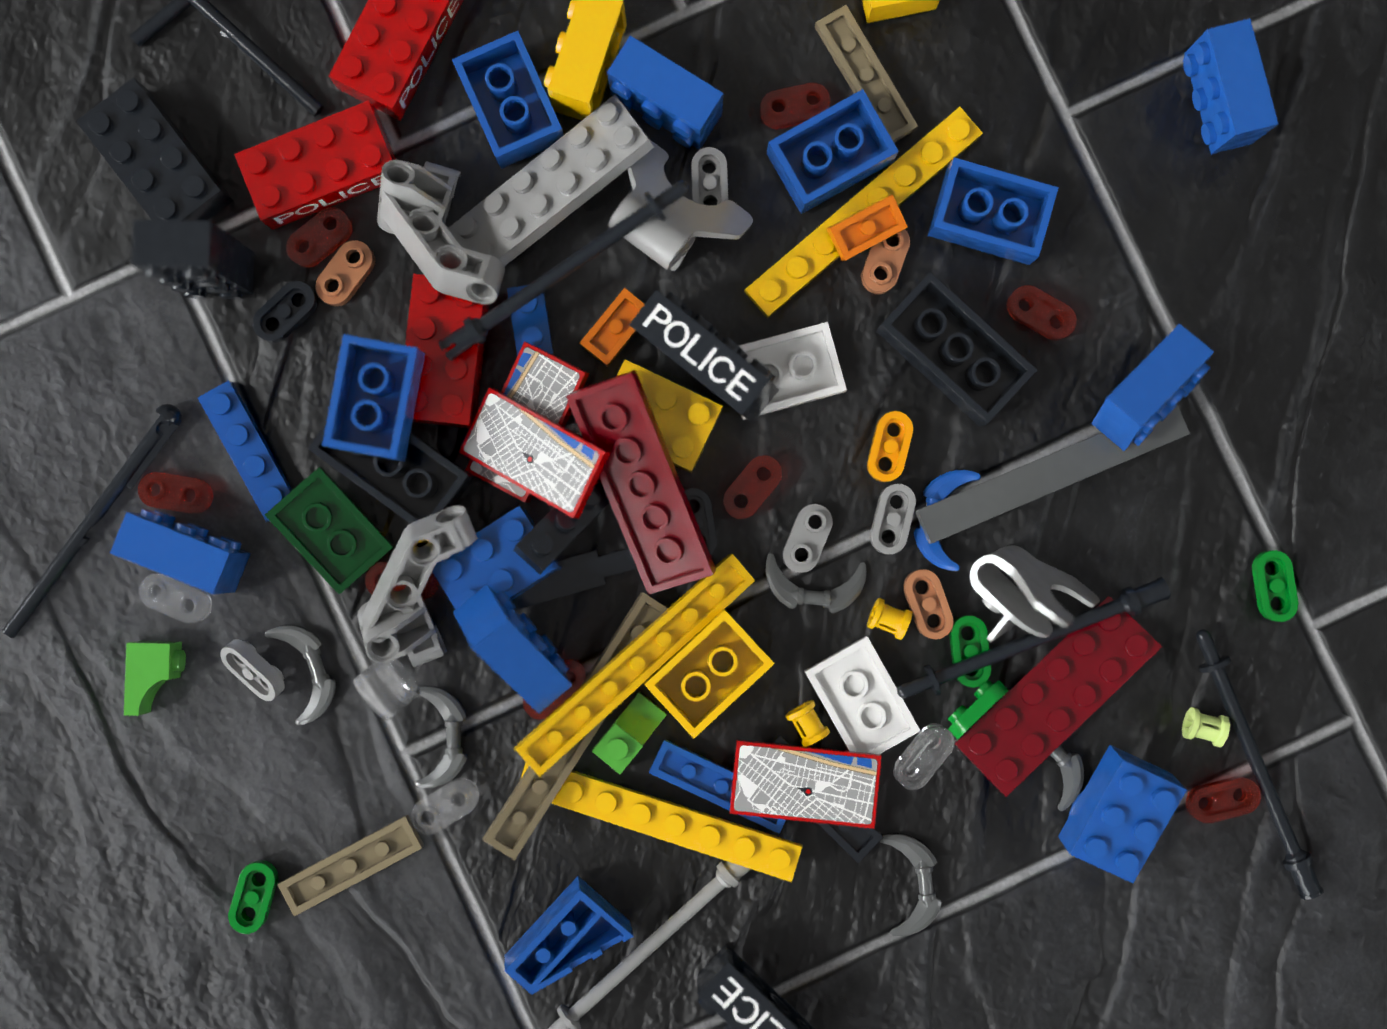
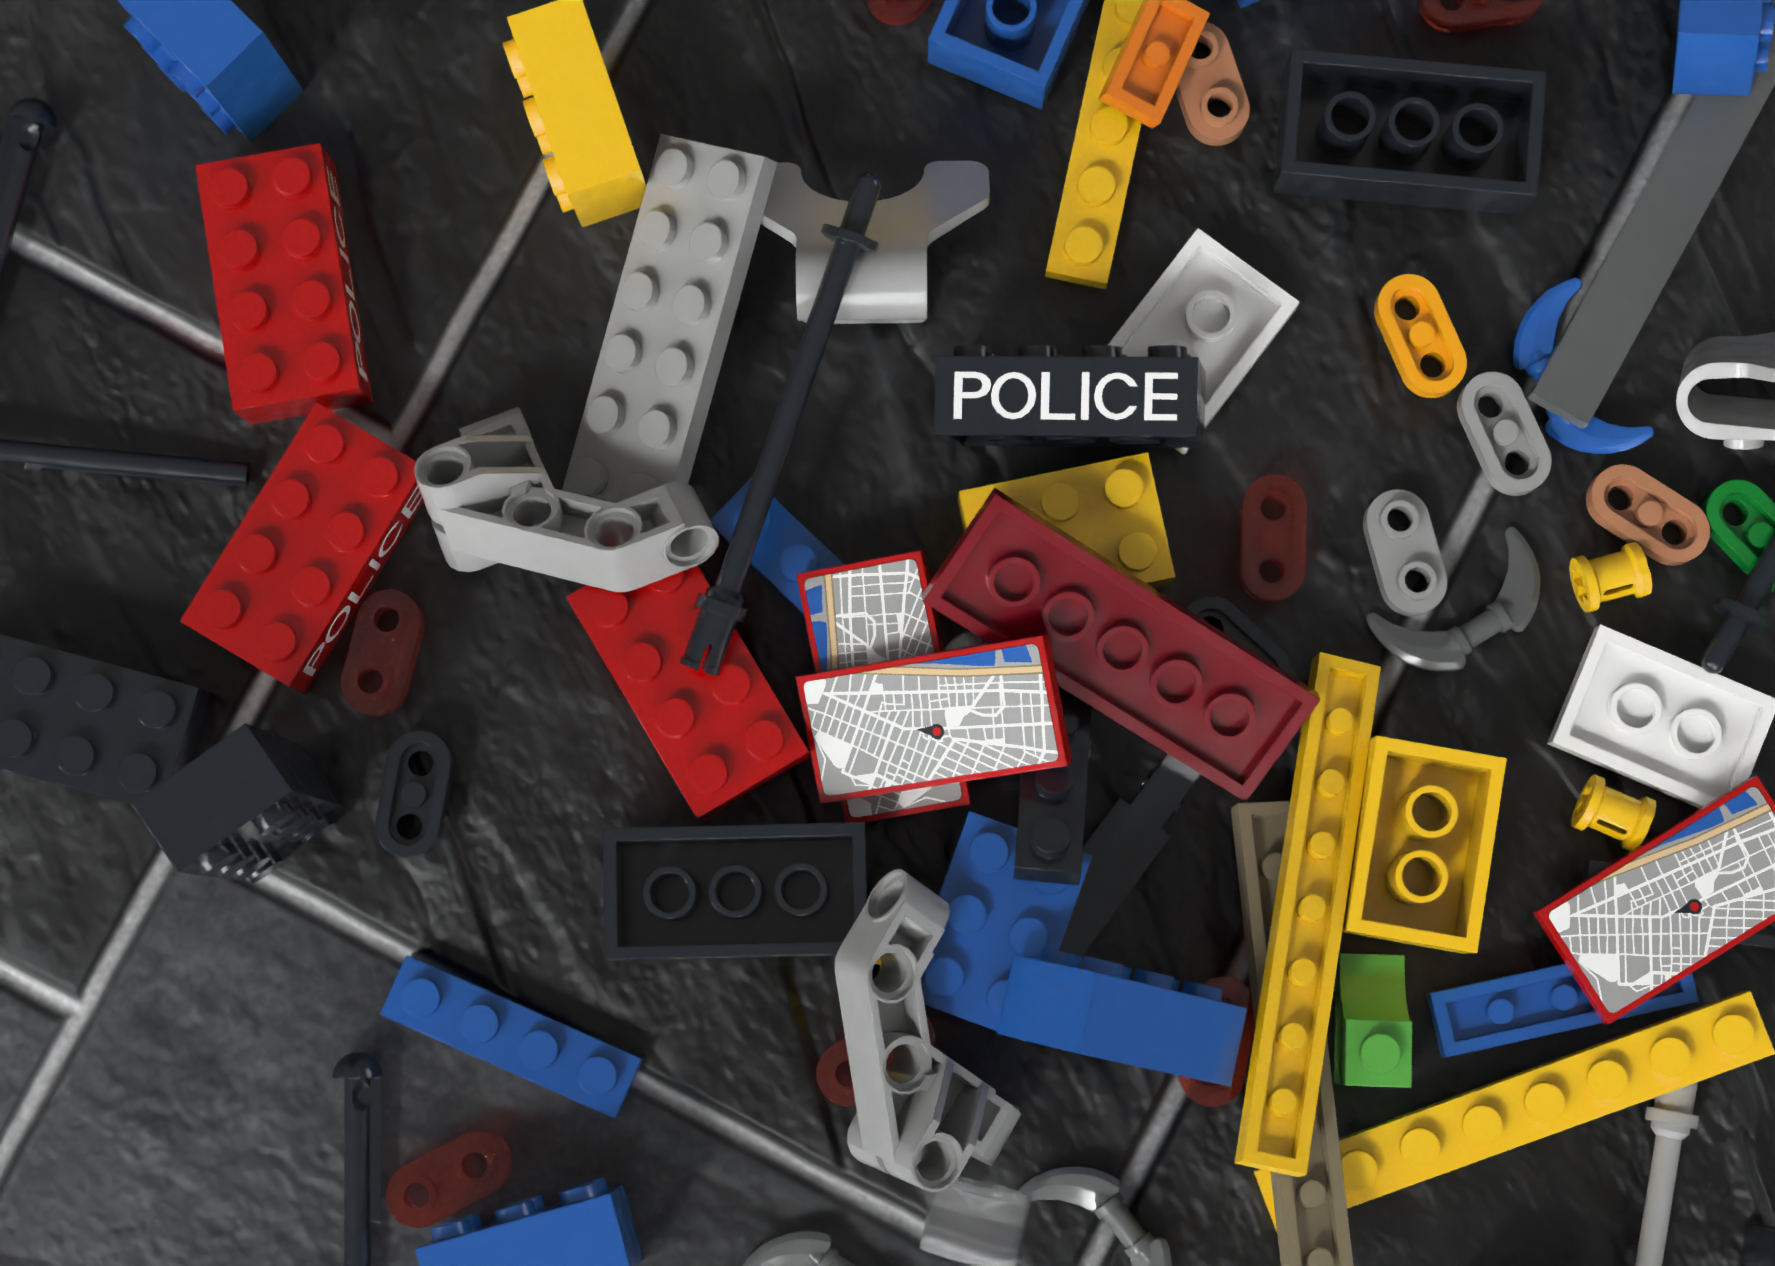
camera: 30 degrees left, 5 degrees down
(329, 530) = (718, 1059): dark green plate -> none
(348, 275) = (459, 674): nougat plate -> none
(374, 398) = (653, 810): blue brick -> none
(508, 99) = (513, 254): blue brick -> none
(613, 329) = (905, 461): orange plate -> none
(665, 93) = (729, 81): blue brick -> none
(709, 185) = (891, 157): light grey plate -> none

